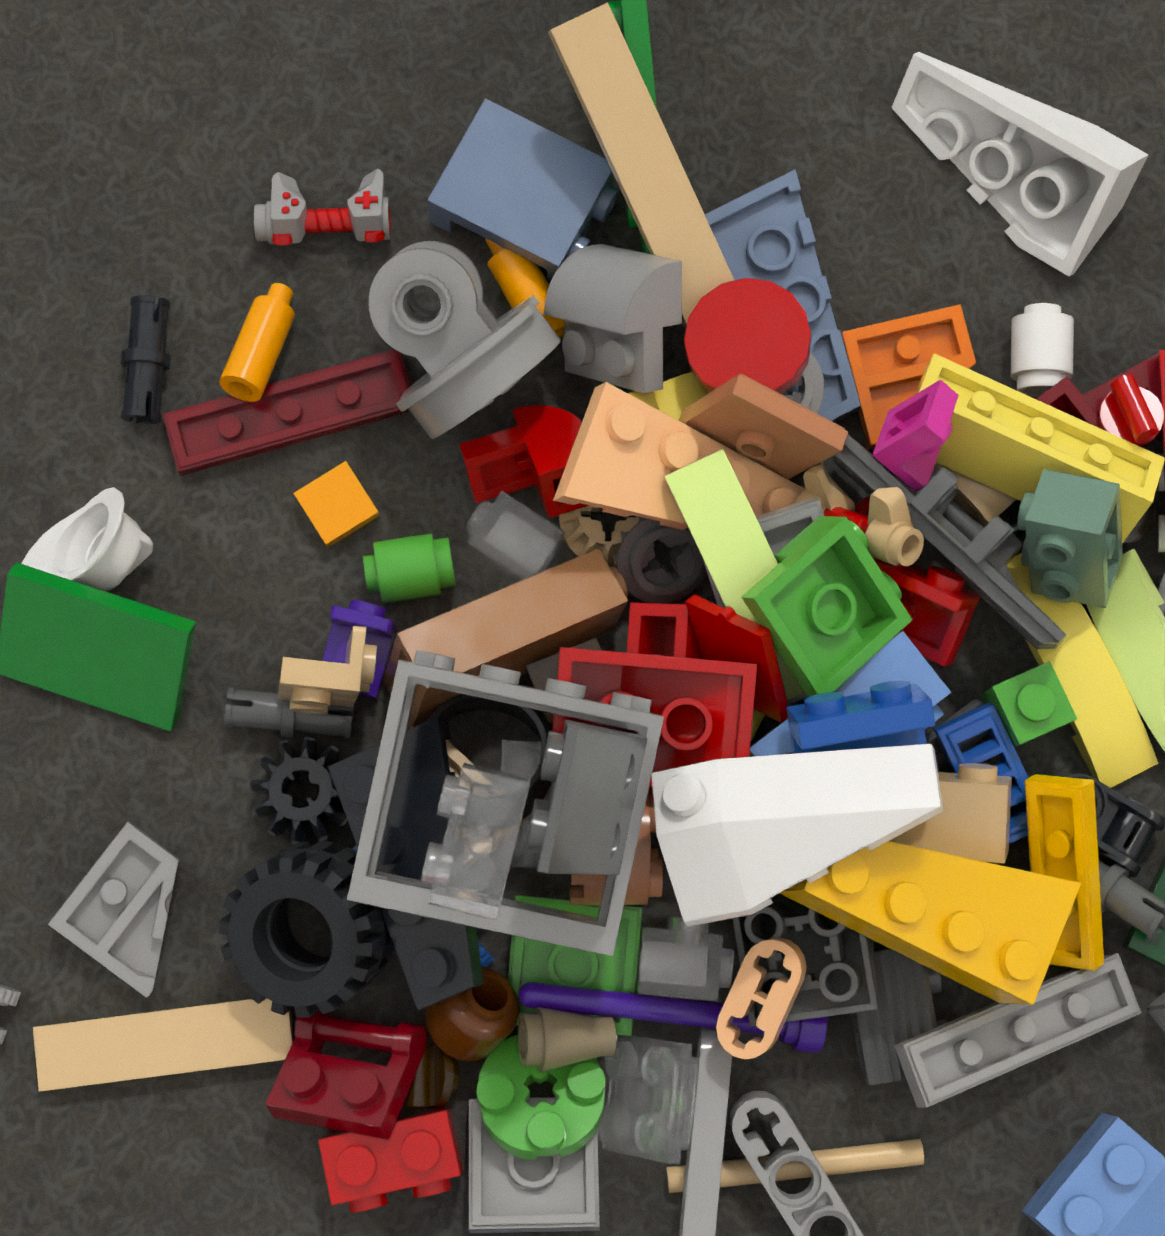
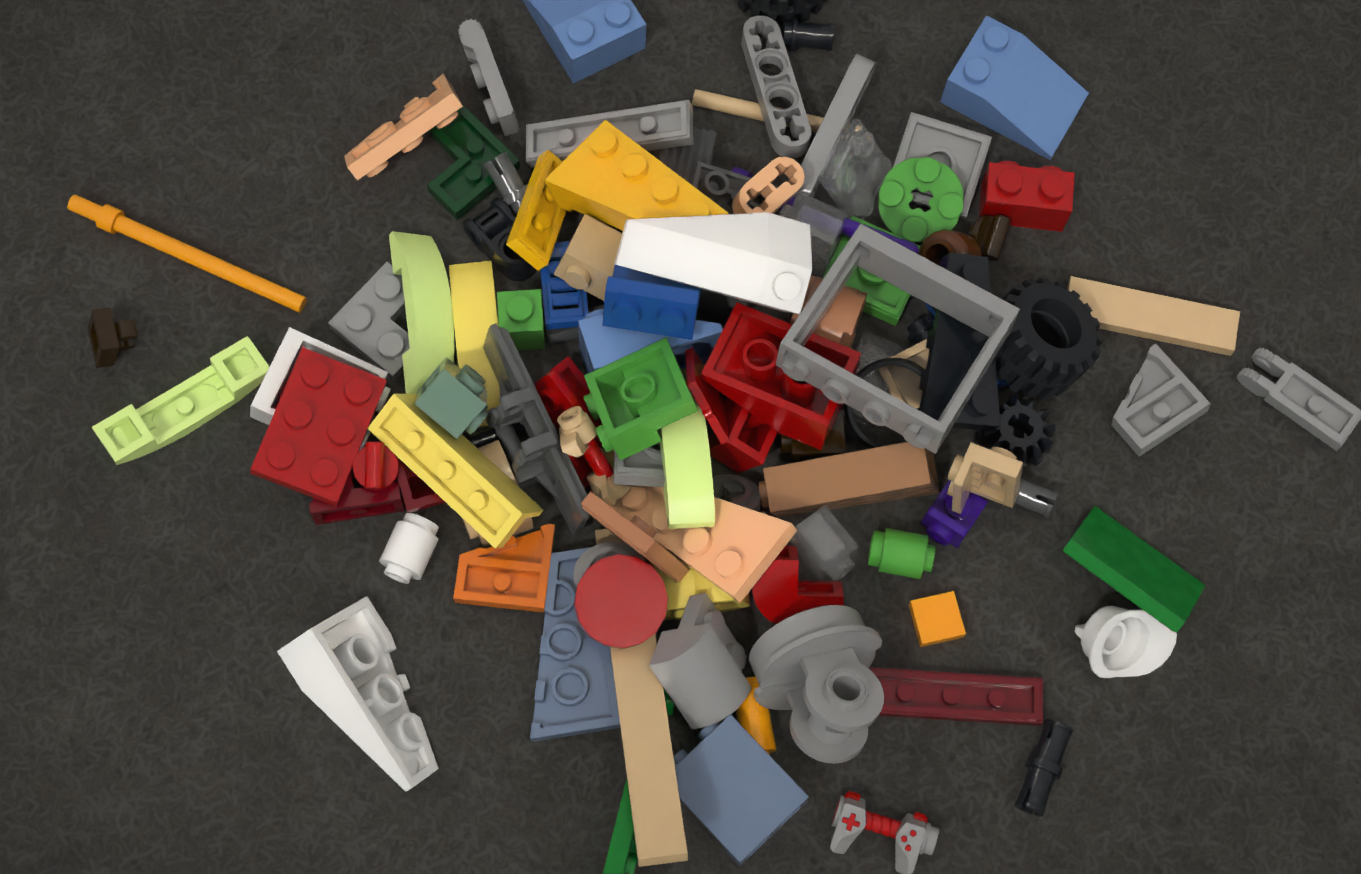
camera: 165 degrees left, 10 degrees down
(259, 344) = (959, 746): light orange cylinder -> none
(344, 1091) = (1047, 236): dark red plate -> none
(478, 842) = (927, 300): clear brick -> none
(563, 1038) = (899, 218): dark tan cone -> none
(589, 799) = (855, 294): dark grey slope -> none
(916, 433) = (533, 489): dark pink bracket -> none

